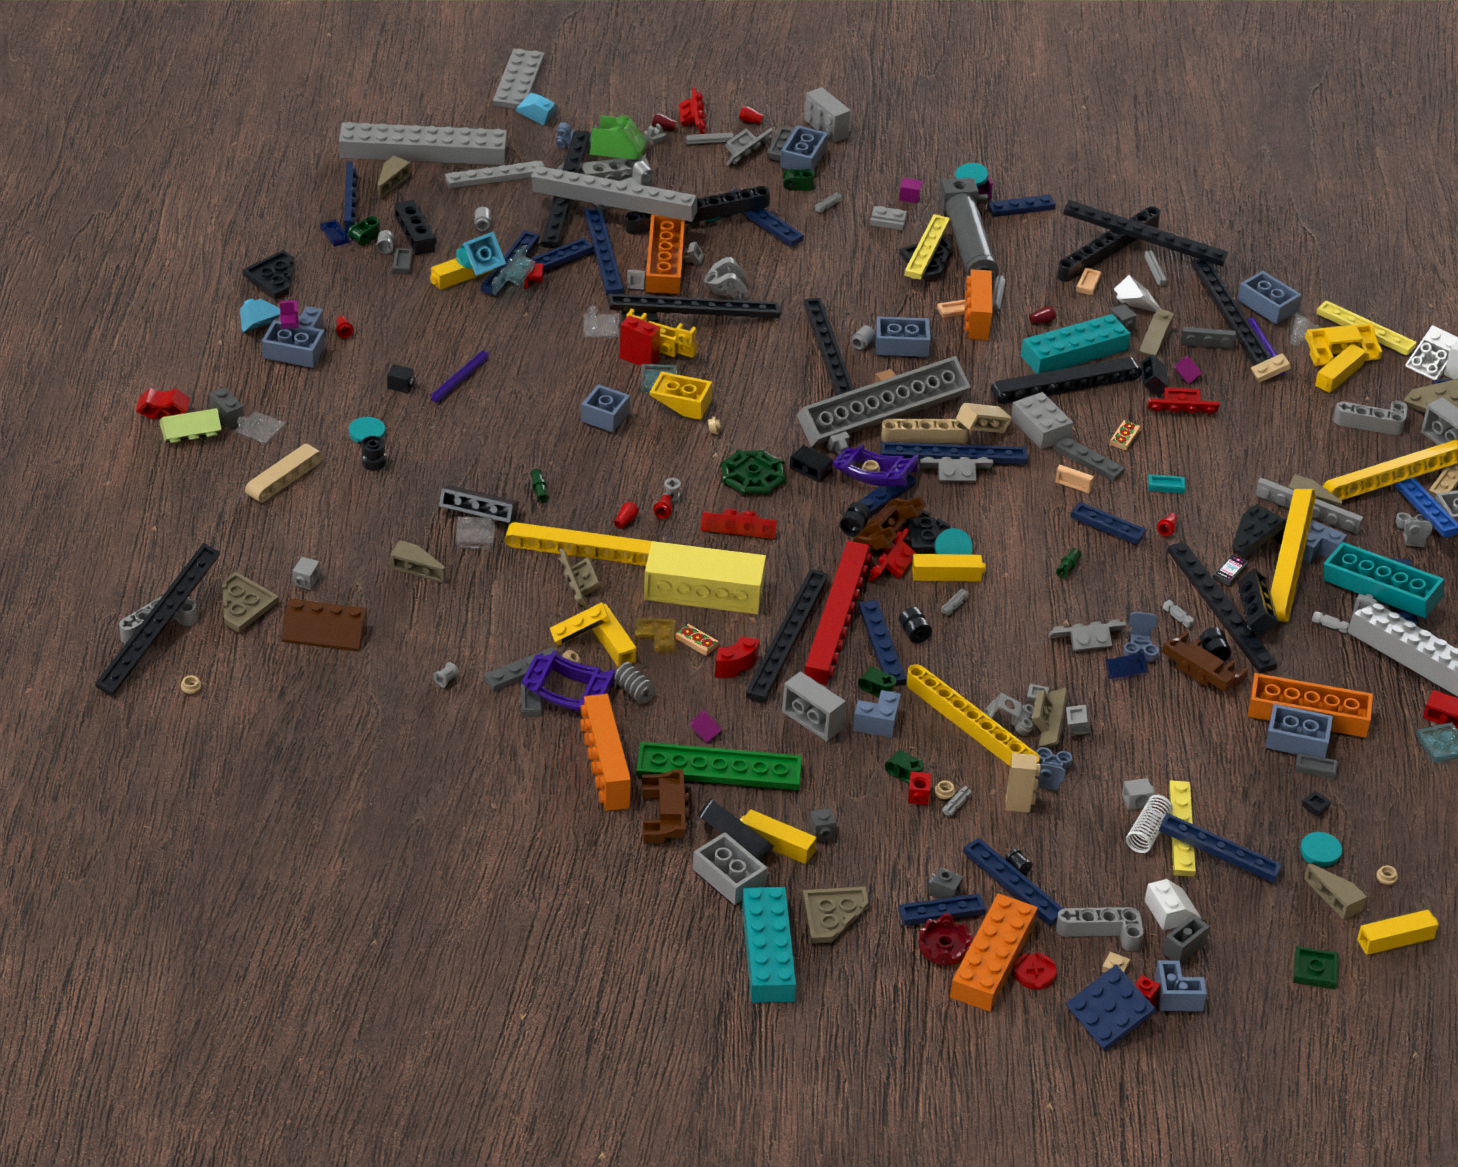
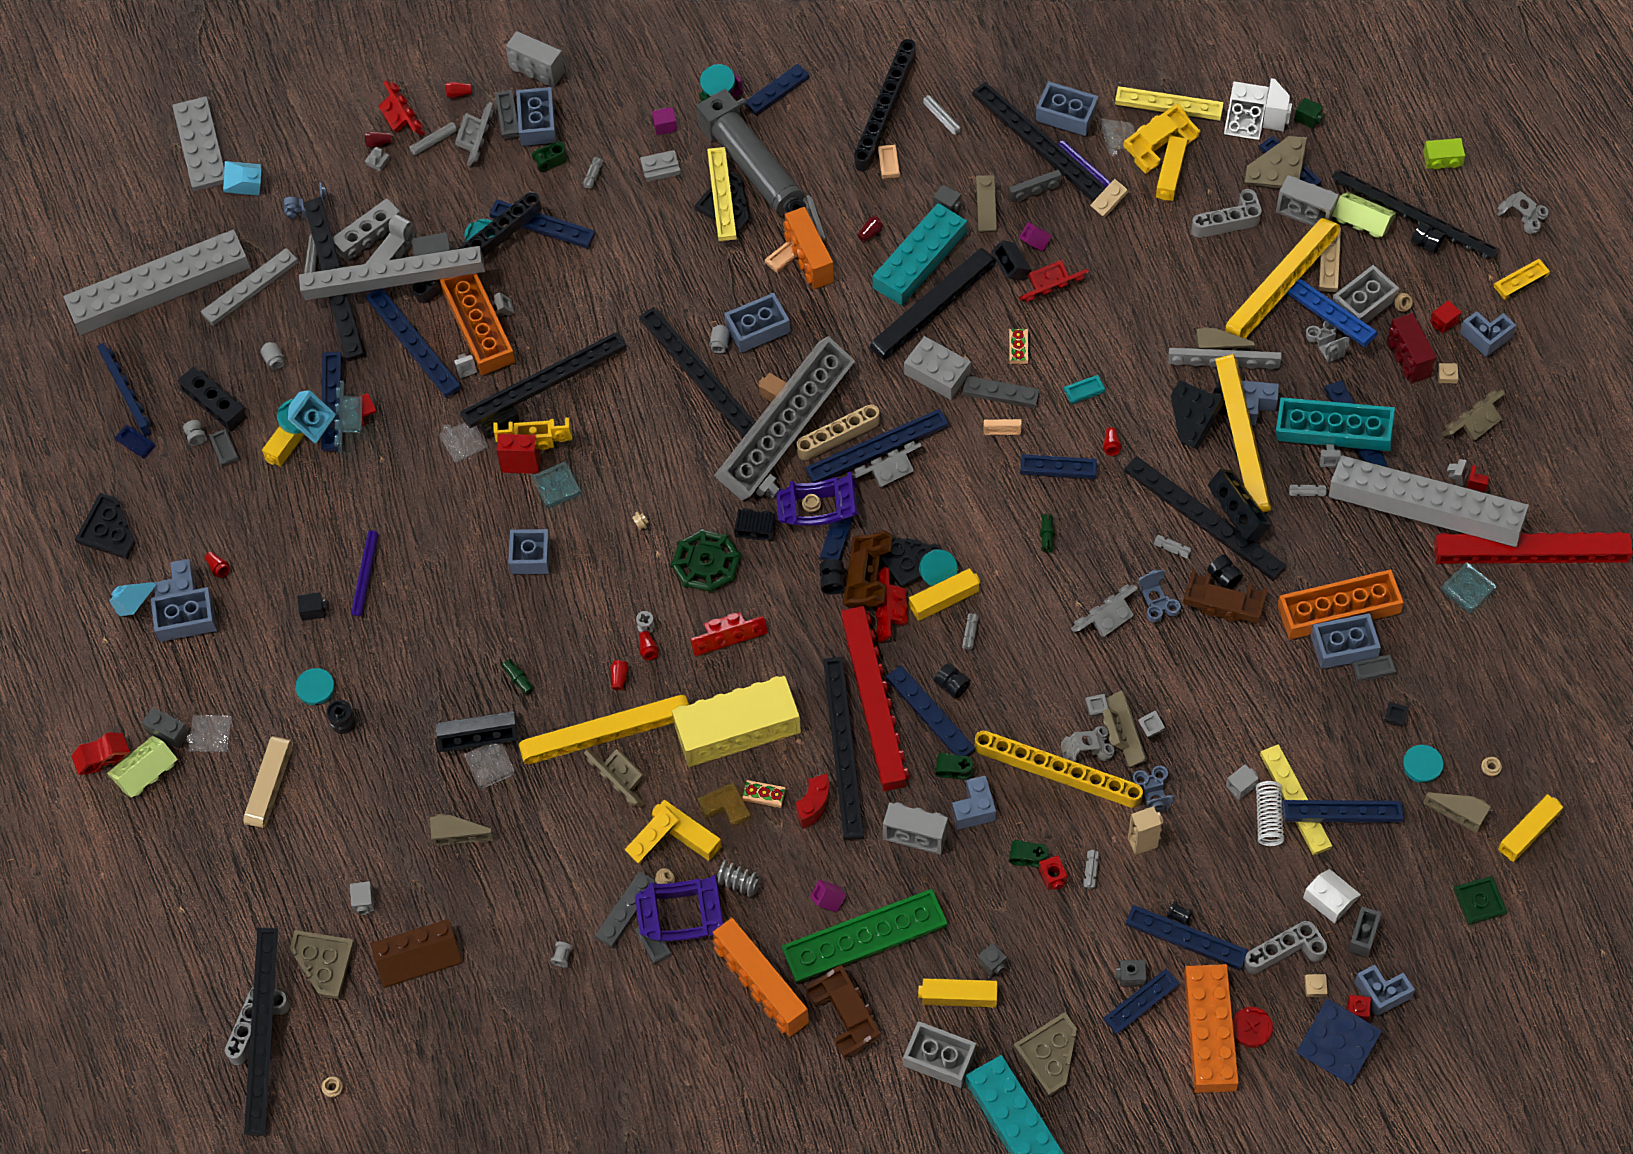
camera: 20 degrees left, 20 degrees up
(289, 314) = (166, 589): magenta panel -> none
(365, 230) = (164, 429): dark green piece -> none
(392, 174) = (150, 334): dark tan slope -> none
(564, 254) = (375, 367): dark blue plate -> none
(617, 138) = (361, 200): bright green windscreen -> none
(683, 394) = (591, 498): yellow slope -> none
(719, 275) = (559, 335): light grey piece -> none
(741, 833) = (915, 1009): black beam -> none
(944, 931) = (1167, 1024): dark red plate -> none
(945, 790) = (1074, 856): tan plate -> none
(984, 417) = (886, 395): tan brick -> none
(1126, 665) = (1158, 634): clear blue tile -> none
(1135, 295) = (944, 161): white slope -> none
(1145, 233) = (915, 79): black plate -> none
(1230, 570) = (1191, 469): tile -> none

